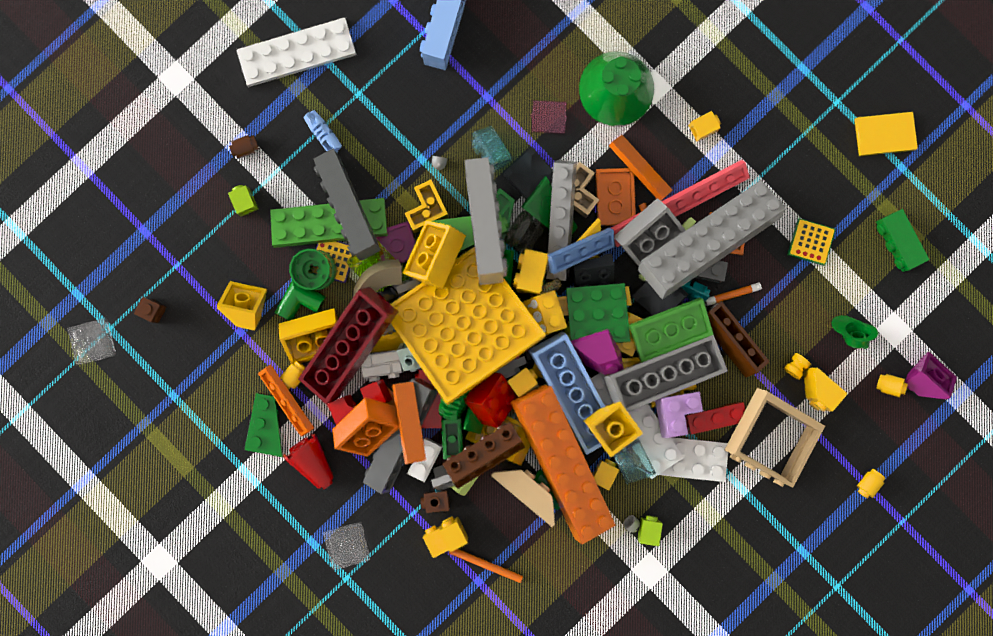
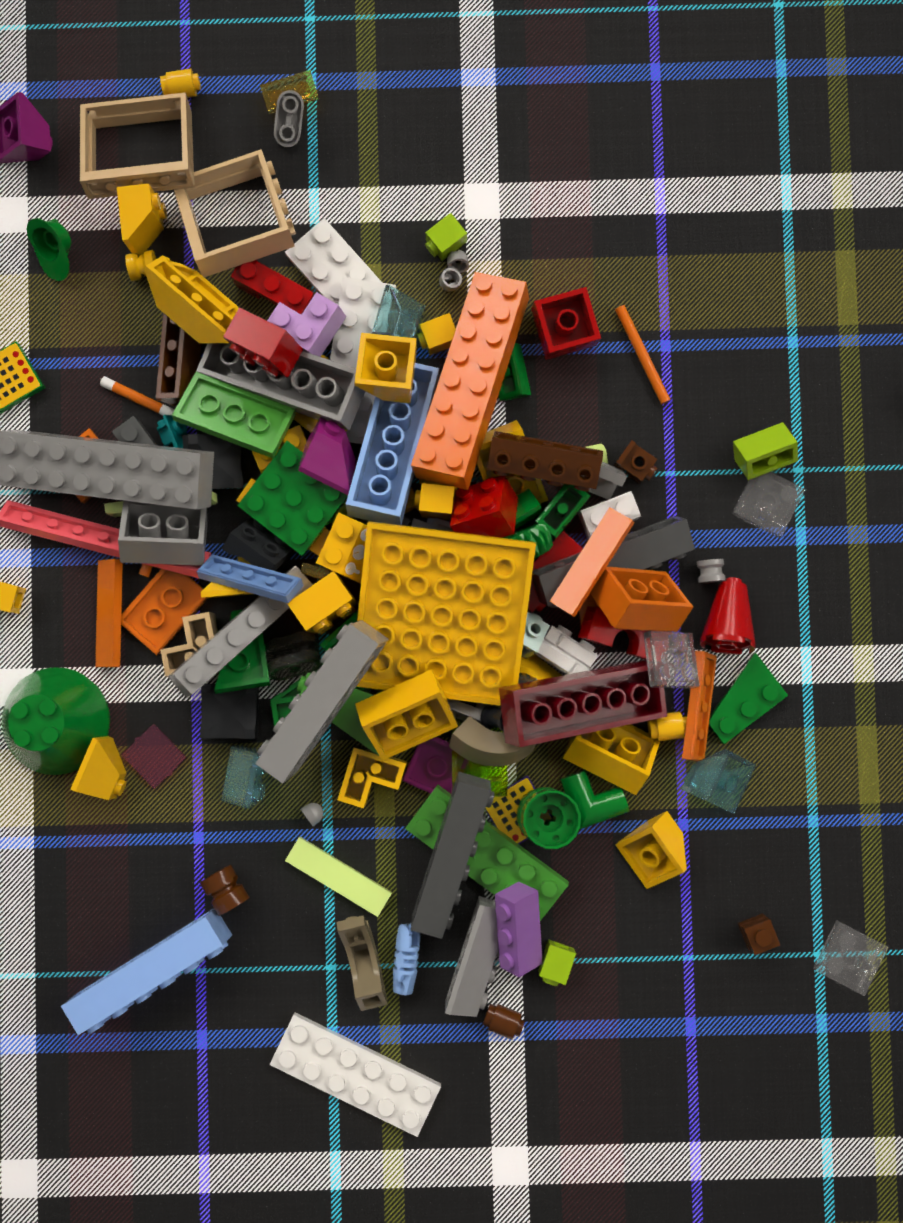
camera: 130 degrees left, 0 degrees up
(241, 371) = (719, 779): none -> clear light blue slope
(277, 199) = (518, 929): none -> medium lavender brick
(286, 166) = (475, 963): none -> light grey slope
(322, 410) = (671, 659): none -> clear hinge
(342, 110) = (363, 962): none -> dark tan arch
(344, 479) = (711, 571): none -> light grey wheel
(372, 571) = (765, 451): none -> lime brick
(396, 142) = (338, 876): none -> yellowish green tile
(445, 537) = (658, 417): yellow brick -> none
(448, 82) = (224, 890): none -> reddish brown wheel
(528, 491) = (533, 383): tan wedge -> none
(541, 543) = (565, 323): none -> red brick
(567, 84) = (101, 770): none -> yellow slope
(630, 511) = (448, 275): none -> light grey hinge
(688, 378) = (262, 343): none -> brick
(746, 369) = (190, 300): none -> yellow wedge
(793, 518) = (288, 118): none -> light grey brick
(808, 534) = (300, 82): none -> clear yellow plate
(880, 446) = (128, 112): none -> tan window
(892, 385) = (64, 159): yellow brick -> none

